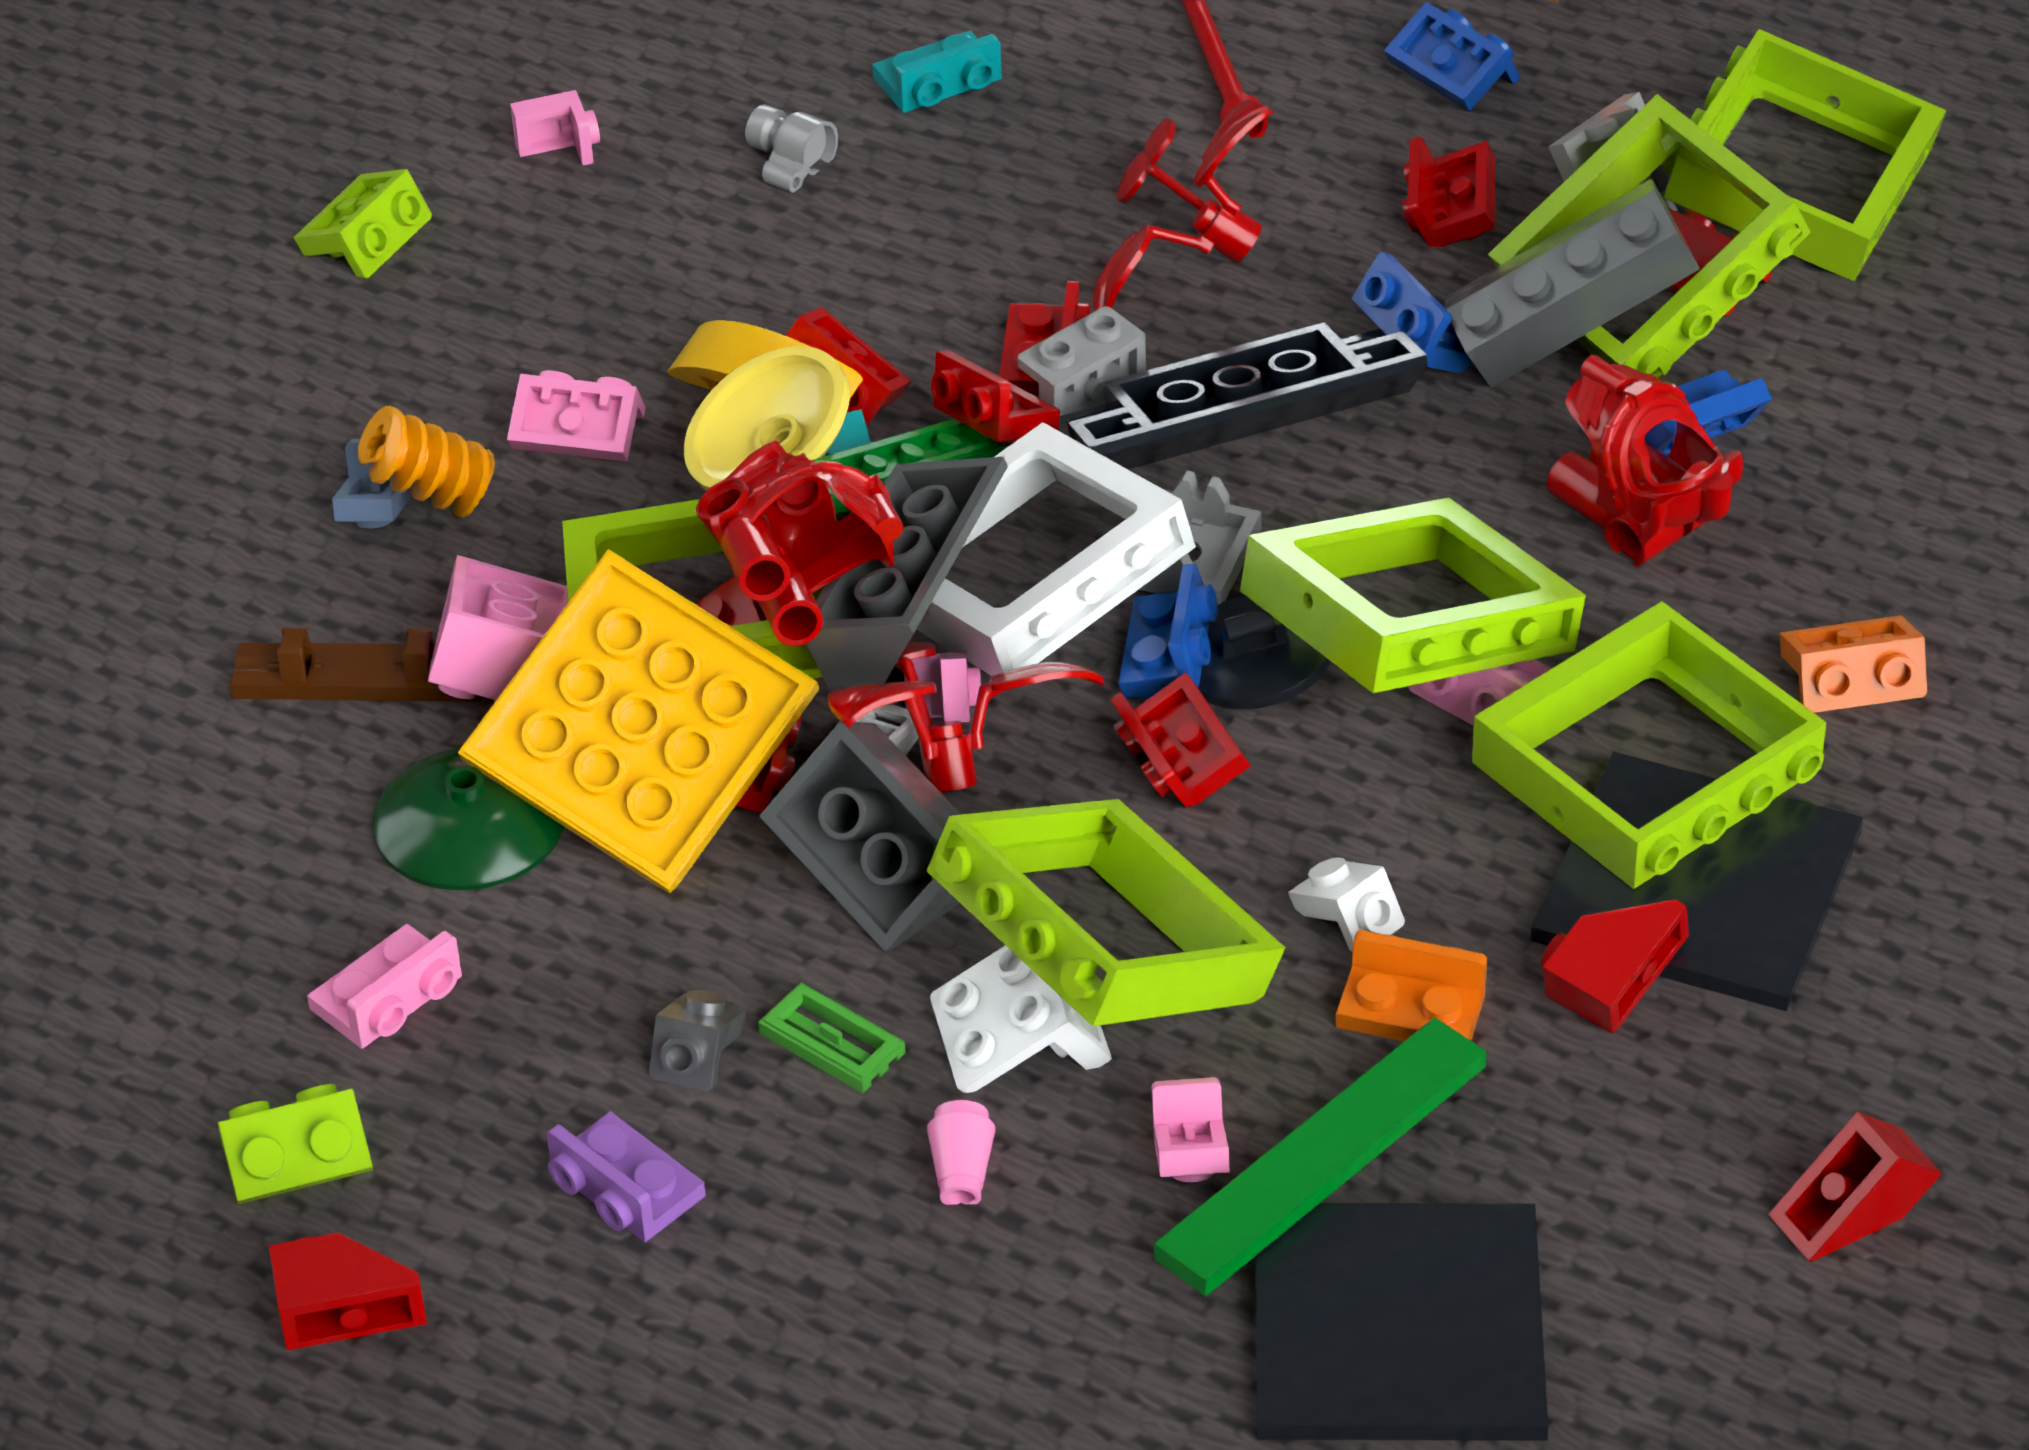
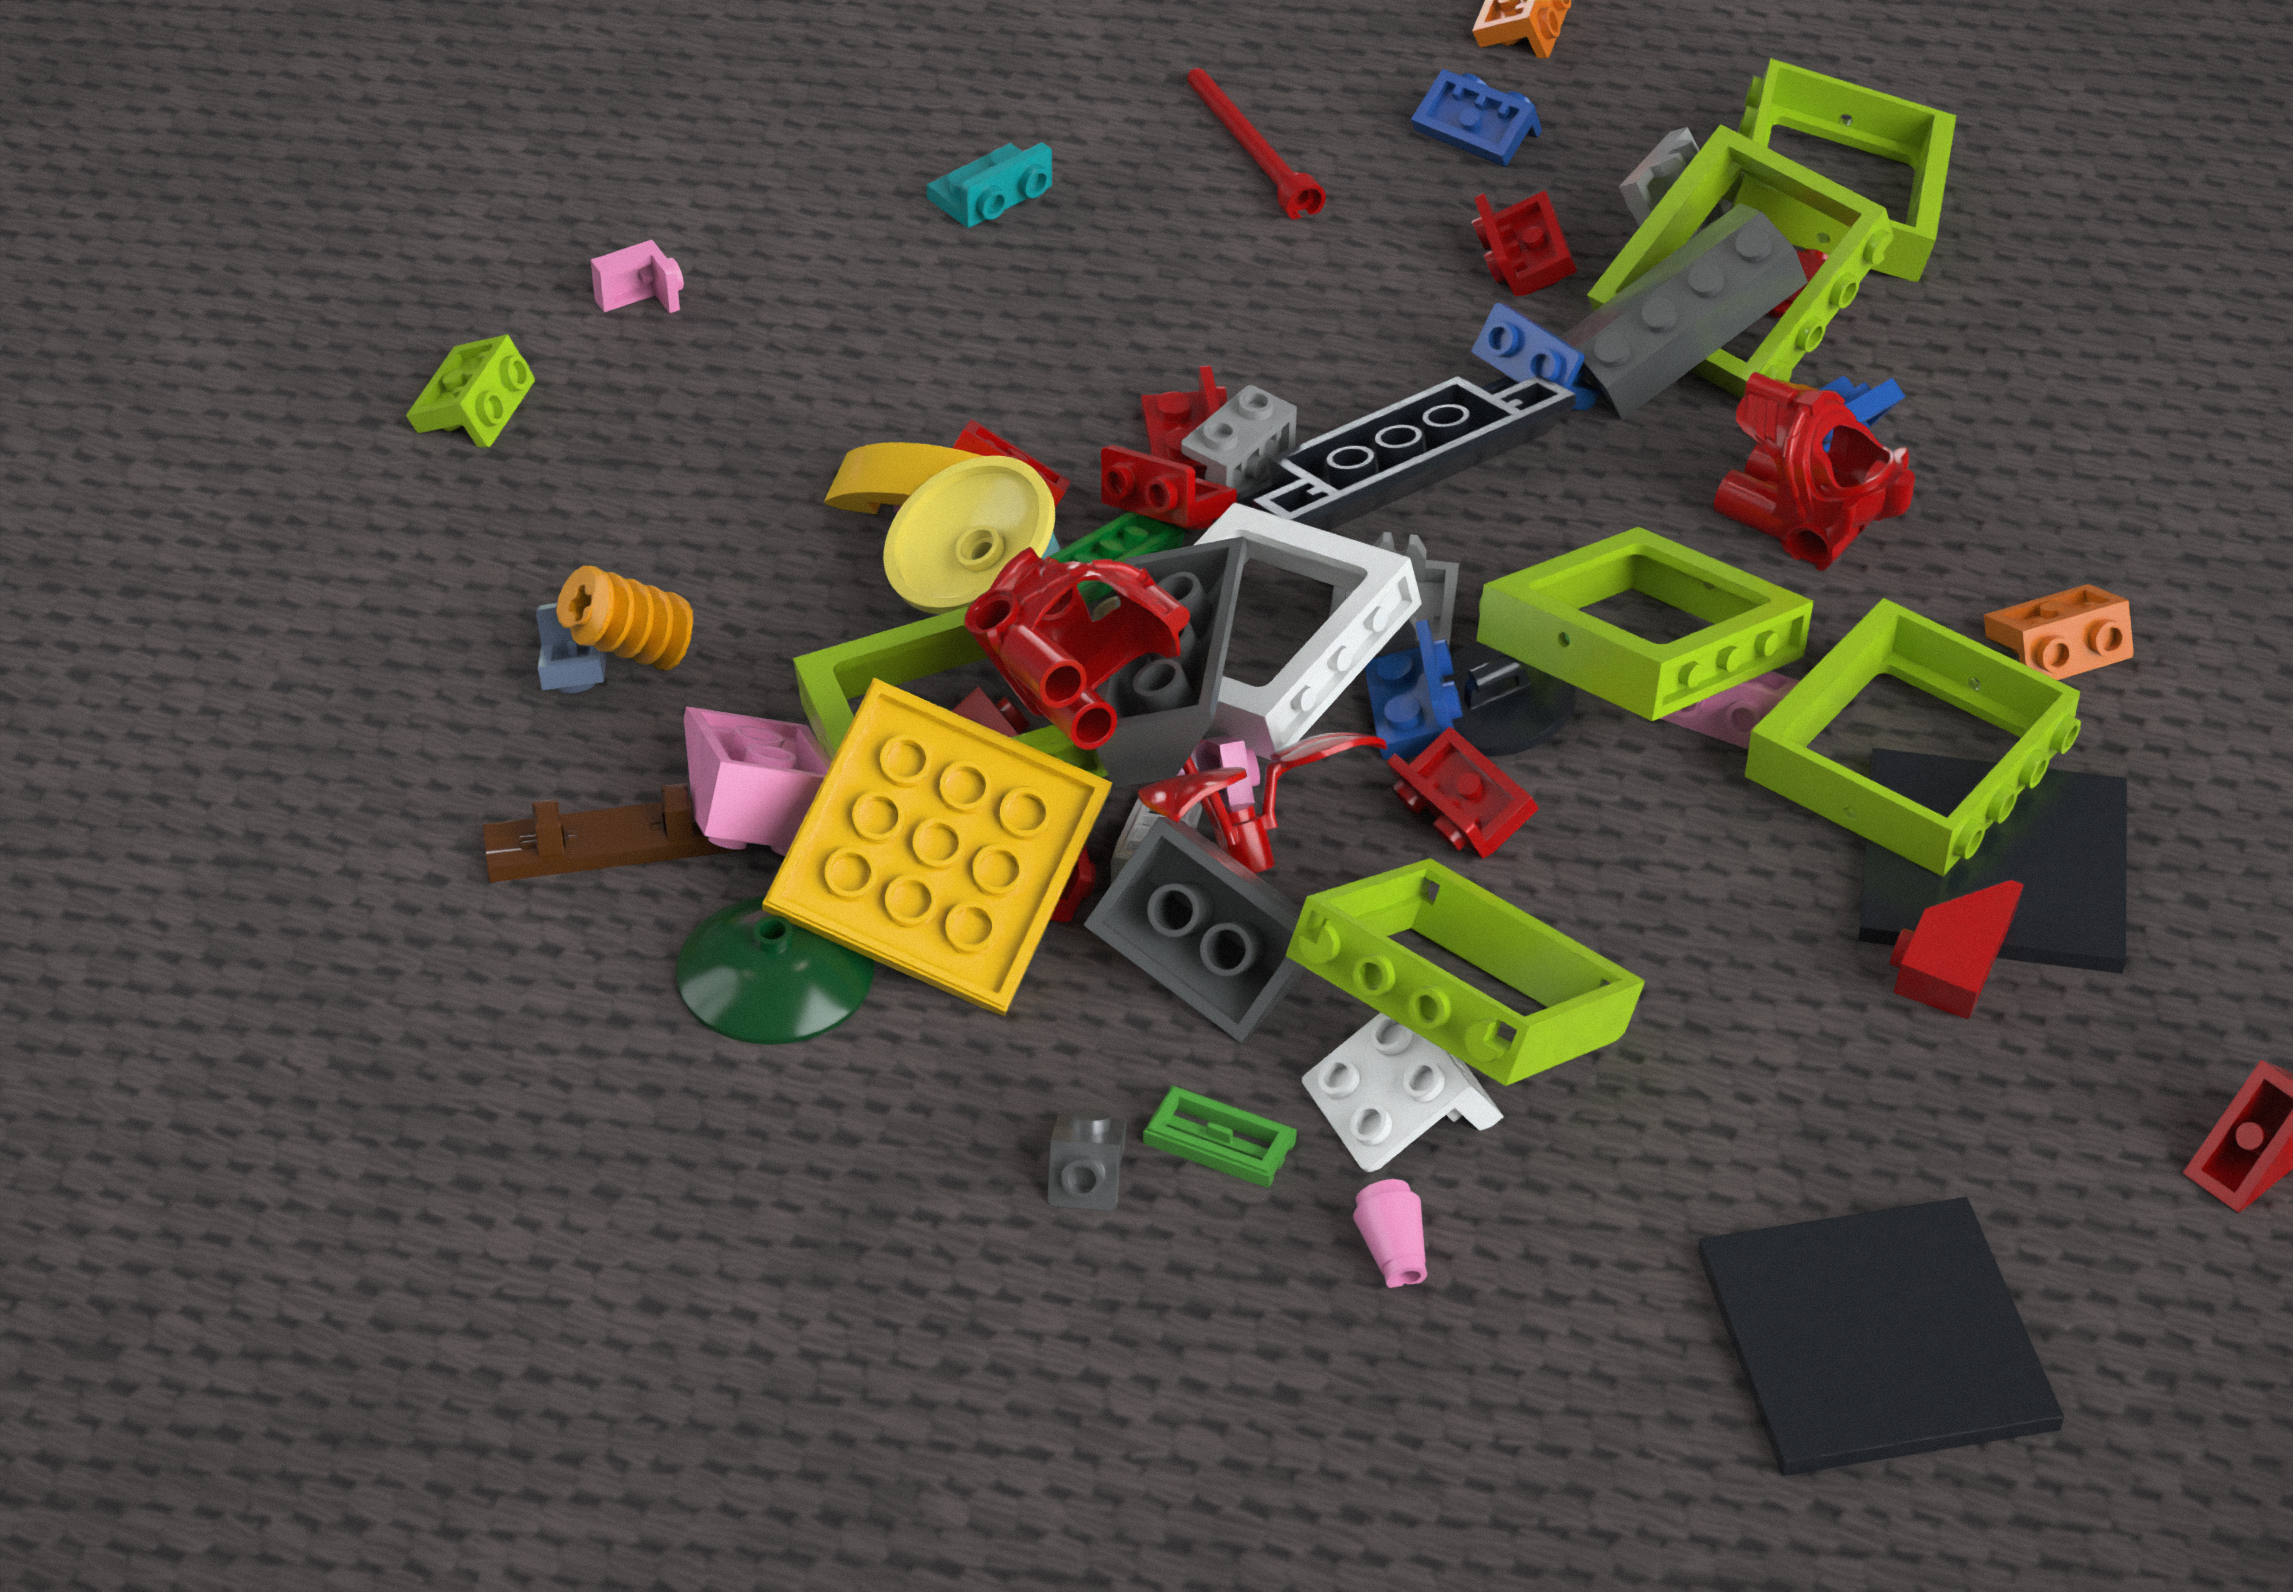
camera: 15 degrees left, 0 degrees up
(294, 1143) = (713, 1330): lime bracket -> none
(341, 1291) = (815, 1475): red slope -> none
(387, 984) = (751, 1150): bright pink bracket -> none
(574, 416) = (752, 555): bright pink bracket -> none
(623, 1176) = (1061, 1309): medium lavender bracket -> none
(794, 142) = (879, 269): light grey piece -> none
(1189, 1129) = (1609, 1176): bright pink bracket -> none
(1219, 223) = (1319, 296): red plant -> none
(1319, 1156) = (1747, 1184): green tile -> none
(1352, 895) = (1679, 920): white bracket -> none
(1406, 983) = (1772, 1006): orange bracket -> none

